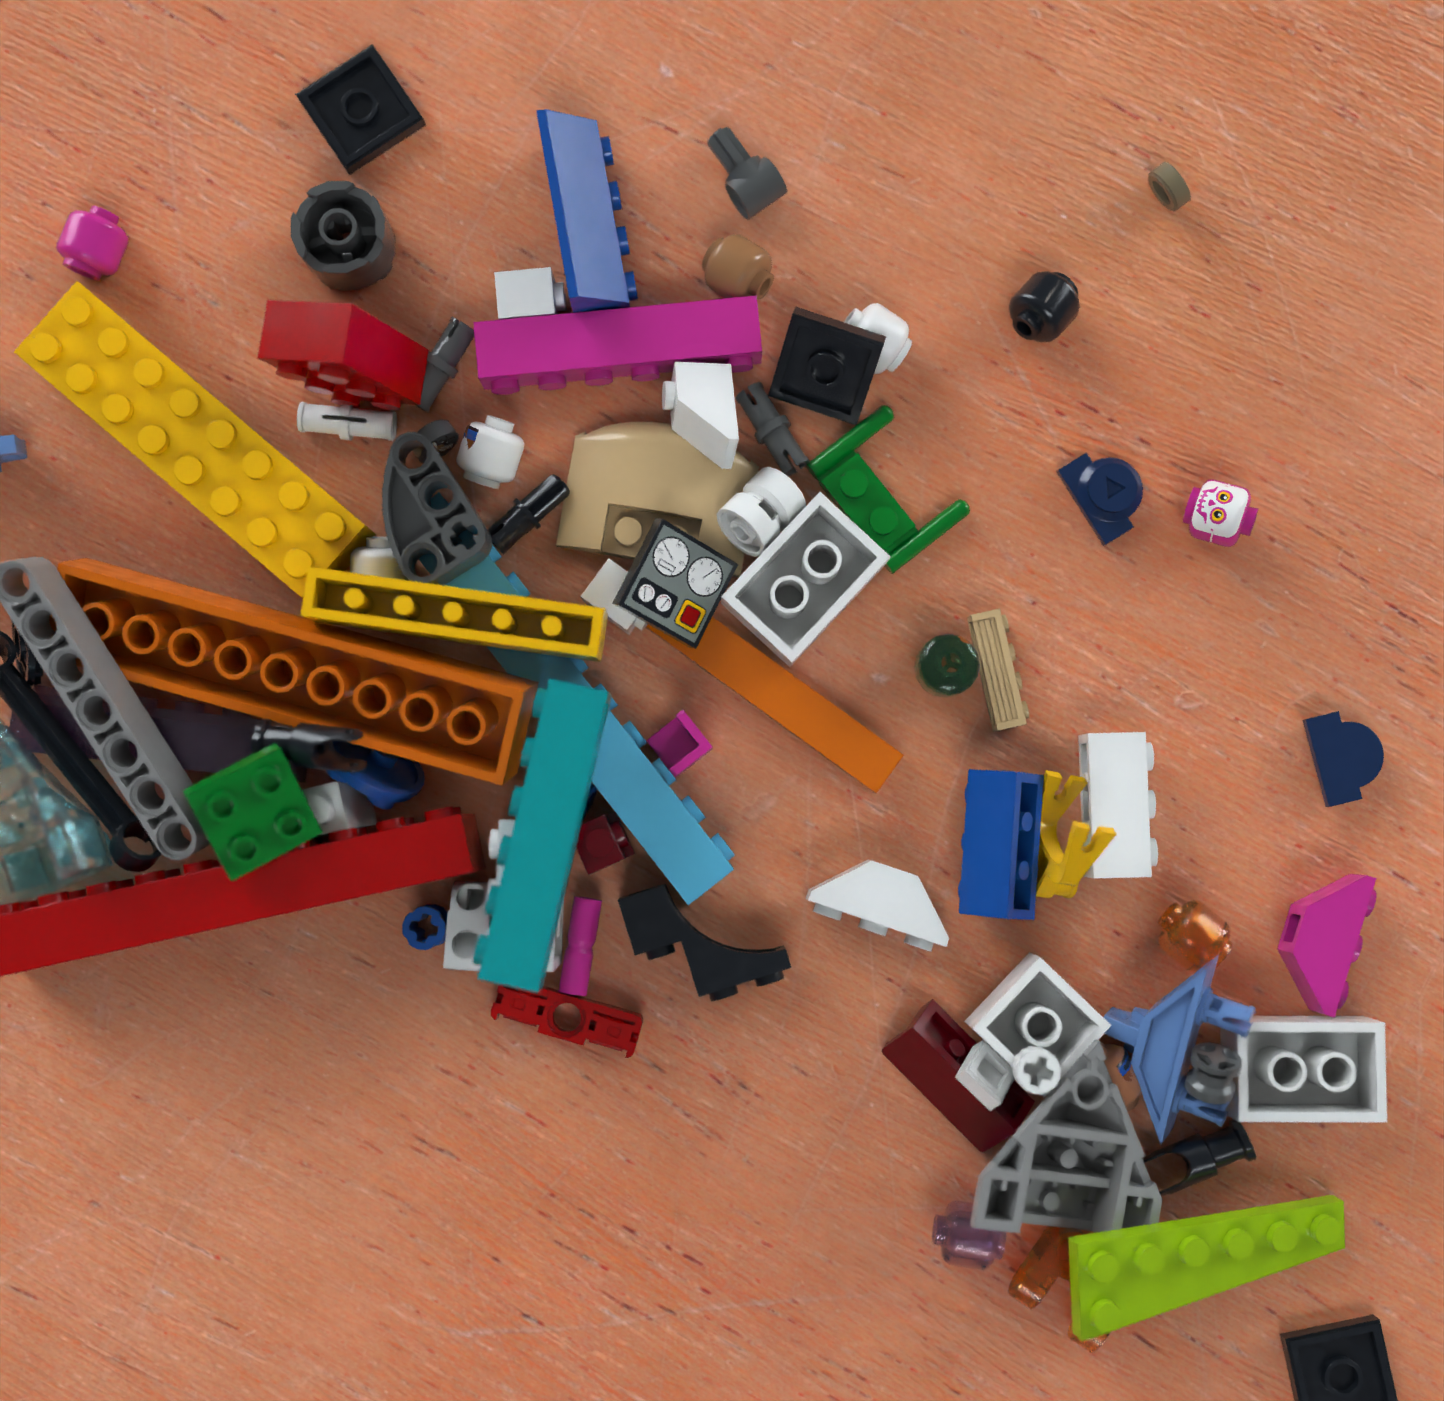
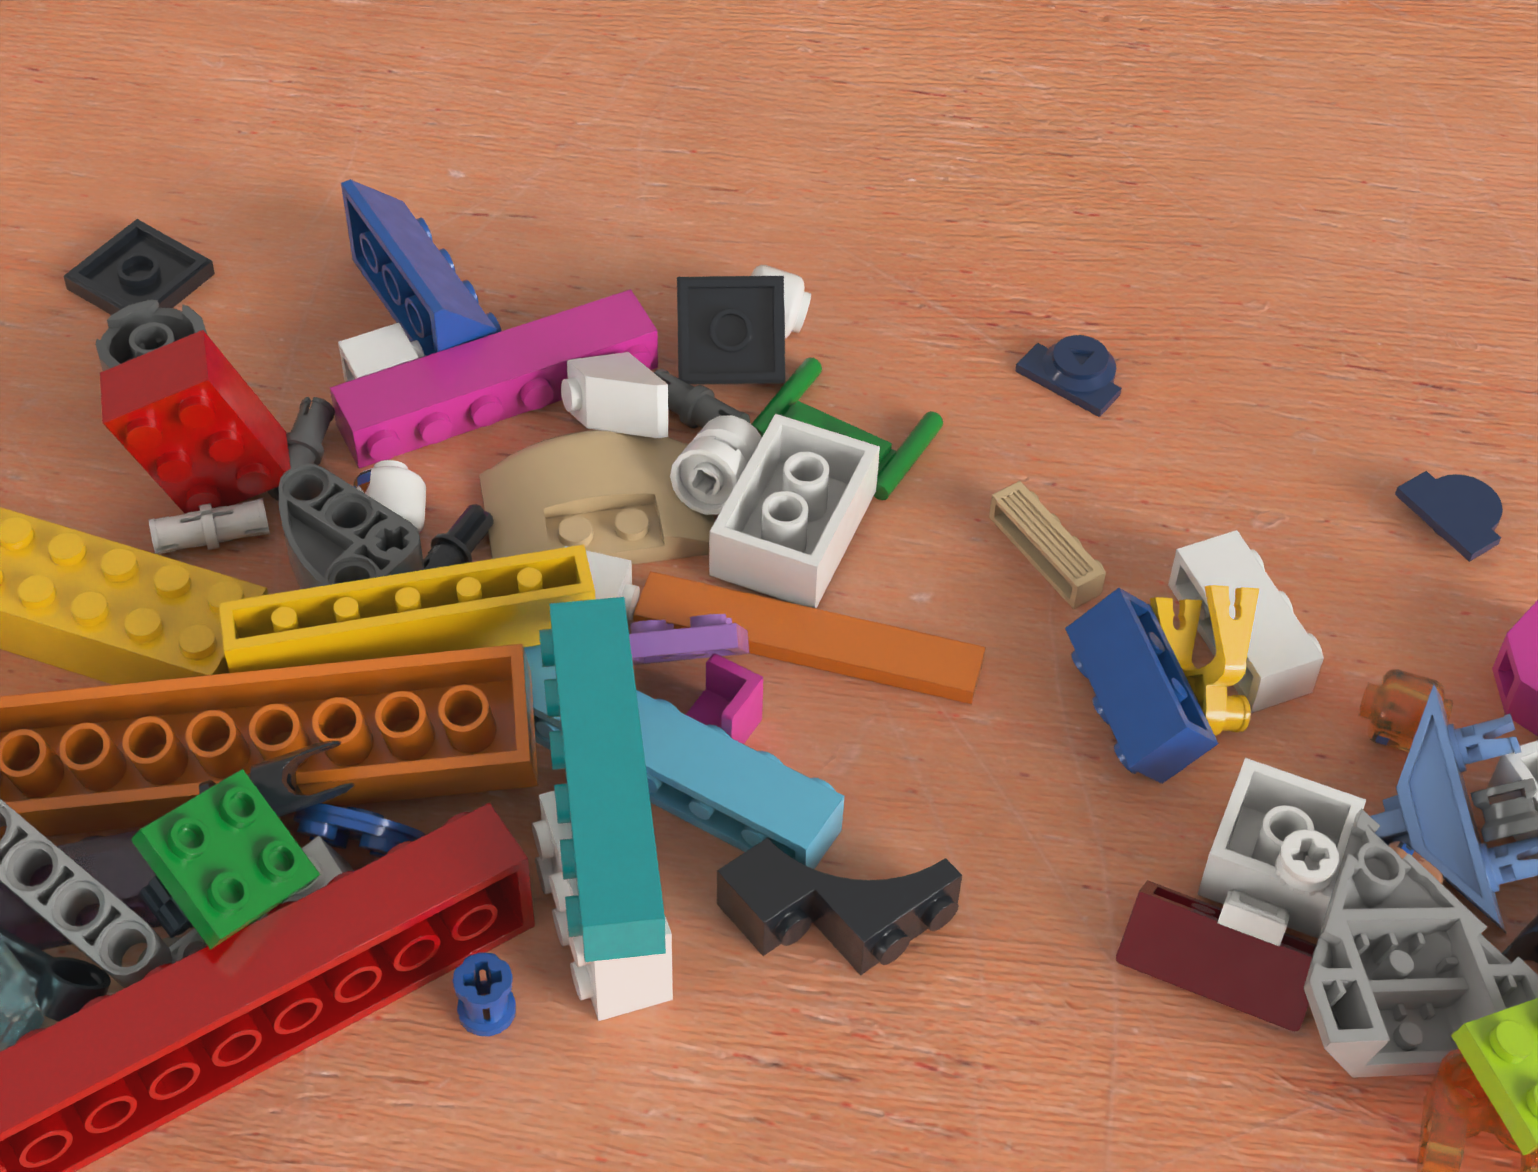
camera: 20 degrees left, 35 degrees down
(465, 924) = (544, 985): white leg -> none
(579, 951) = (690, 968): dark pink piece -> none
(599, 1022) = (659, 1044): red piece -> none
(603, 842) = (680, 832): dark red brick -> none
(665, 690) = (712, 633): none -> medium lavender plate
(675, 583) = (651, 545): tile -> none
(737, 268) = (596, 277): medium nougat head -> none
(751, 180) = (580, 220): dark grey axle -> none
(882, 900) = (1036, 790): white slope -> none
(935, 677) = (989, 544): clear green head -> none
(962, 1243) = (1334, 1114): head -> none
(1045, 306) = (934, 232): black head -> none
(1169, 186) = (1002, 123): dark tan tile -> none
(1219, 513) = (1201, 343): head -> none

